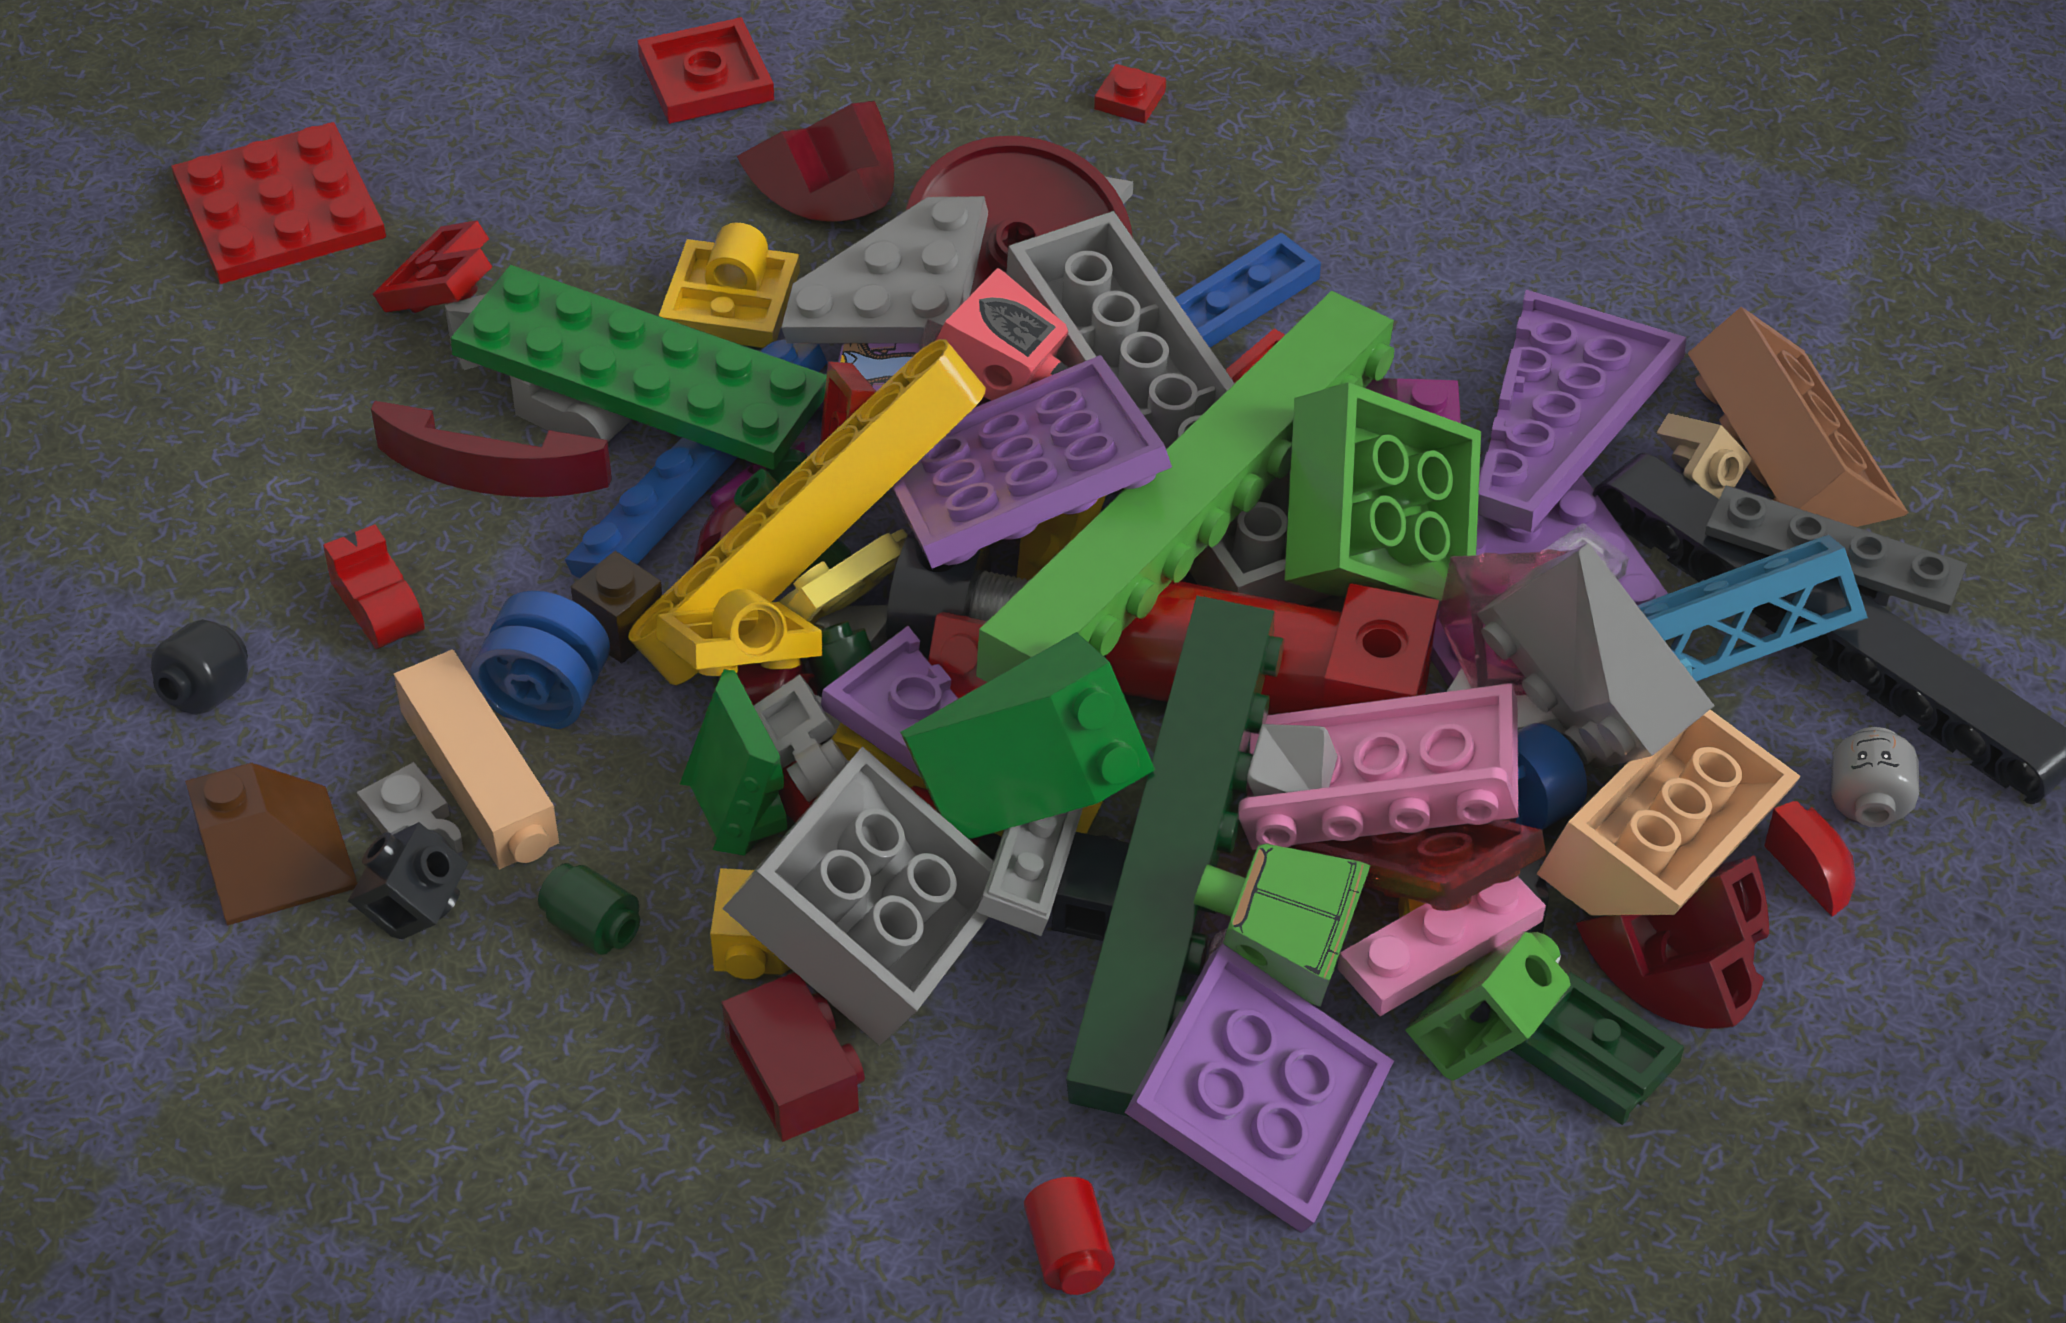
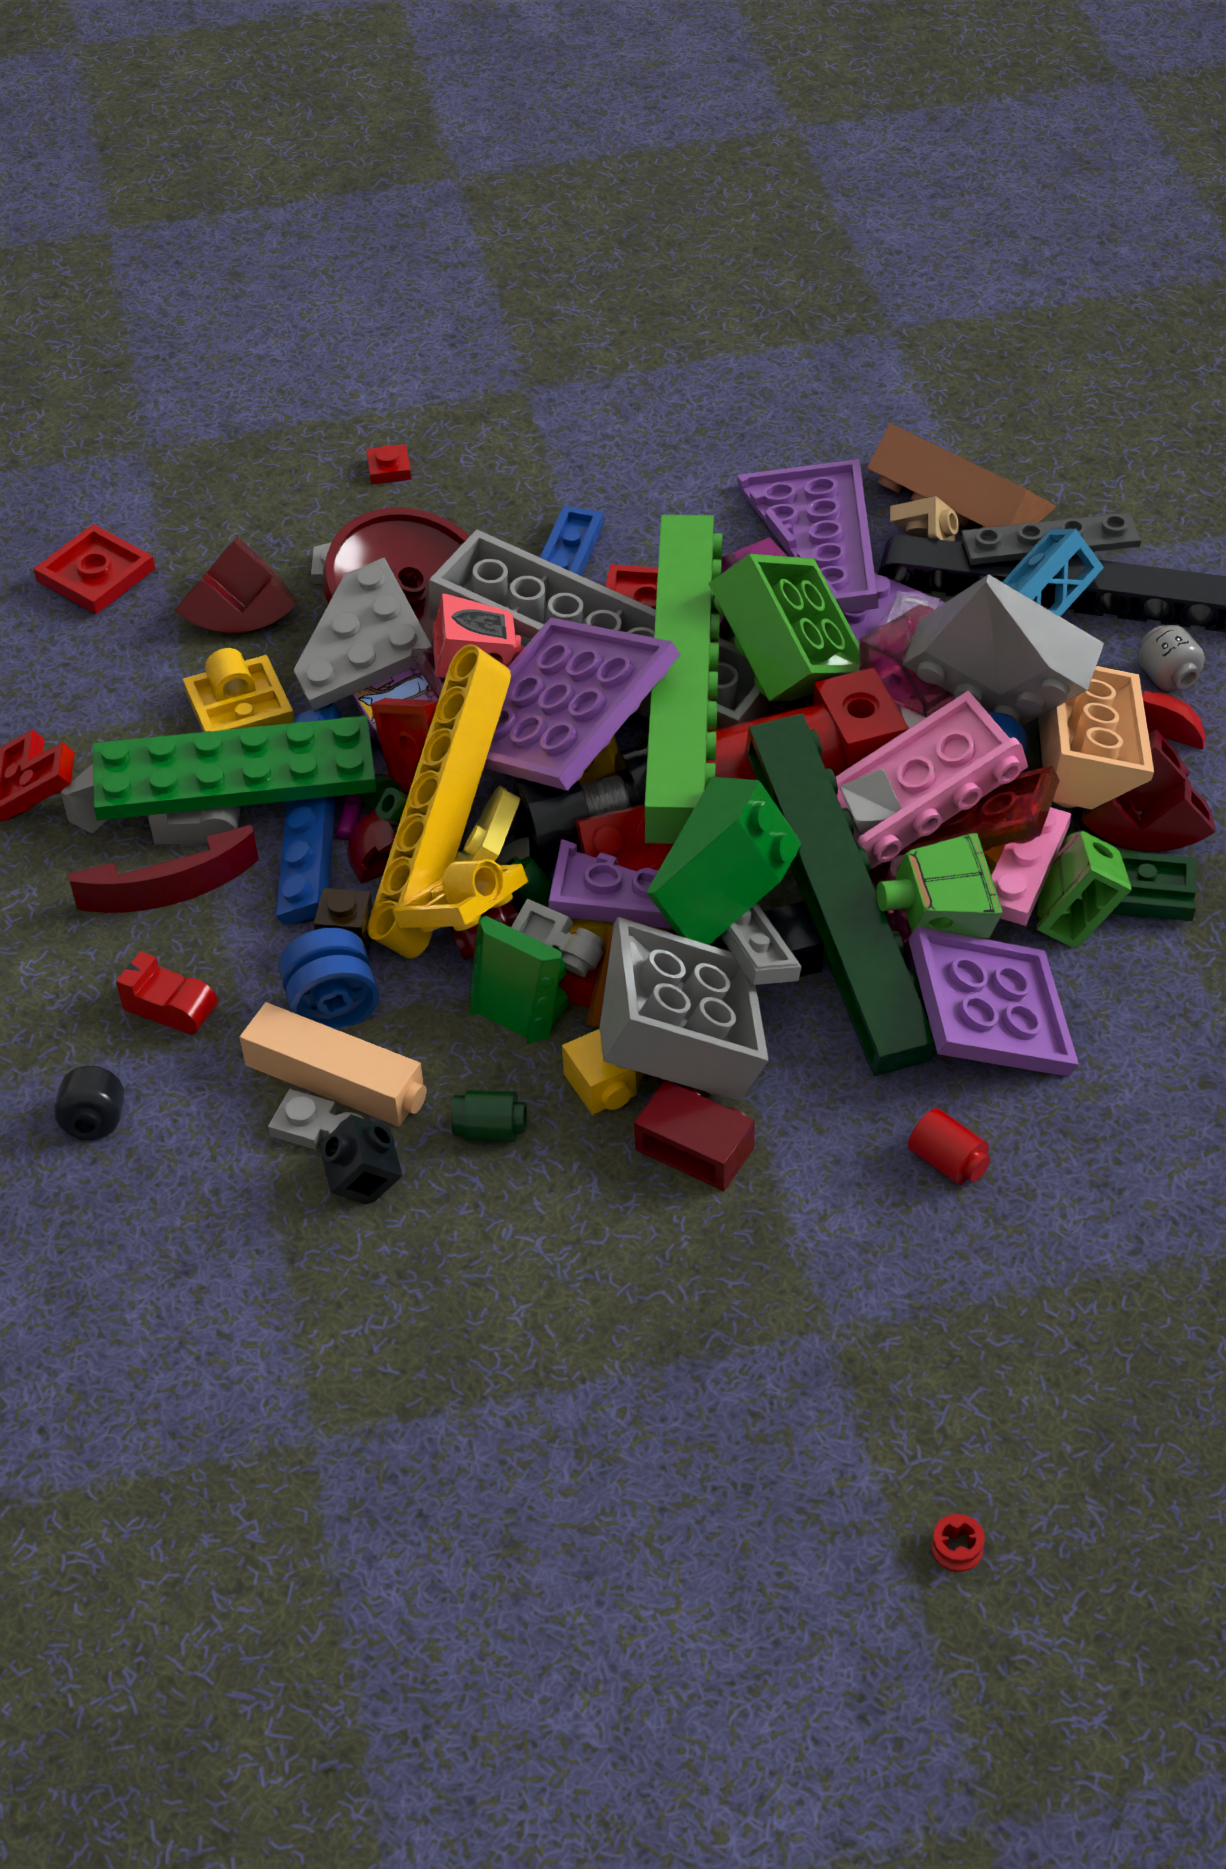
camera: 30 degrees left, 0 degrees up
(268, 840) = (234, 1189): reddish brown slope -> none

